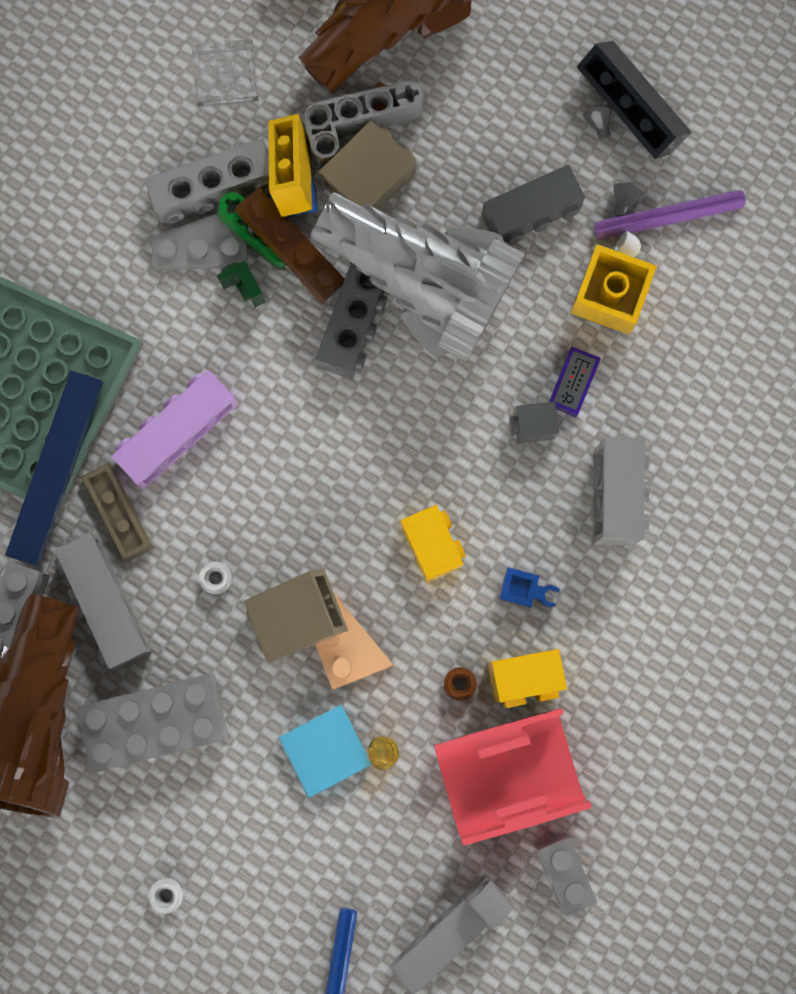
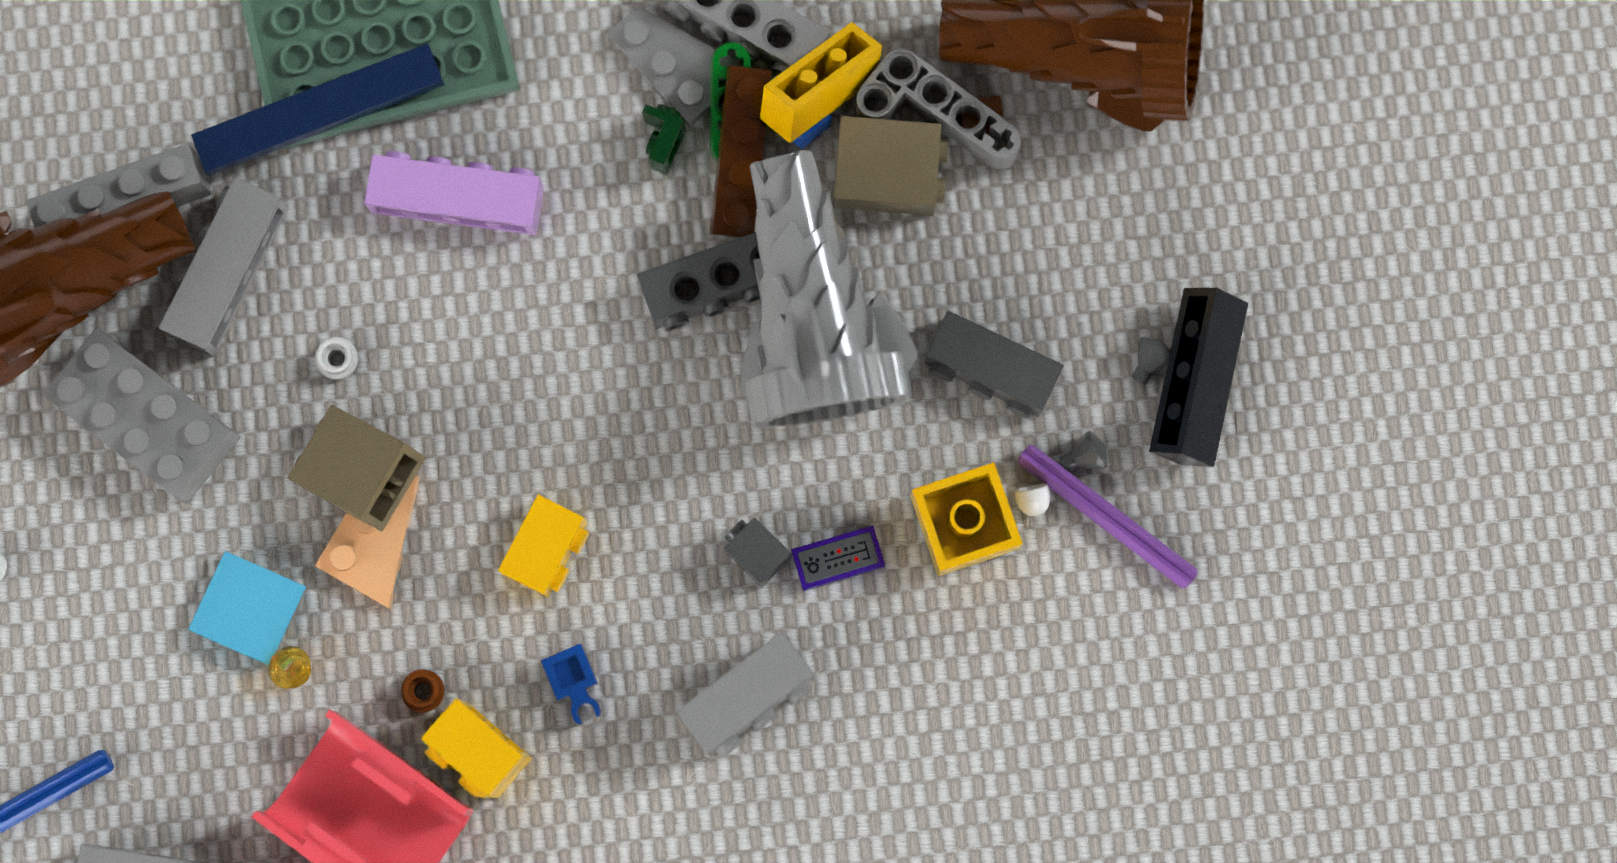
camera: 55 degrees right, 0 degrees up
(117, 512) = (326, 206): dark tan tile -> none

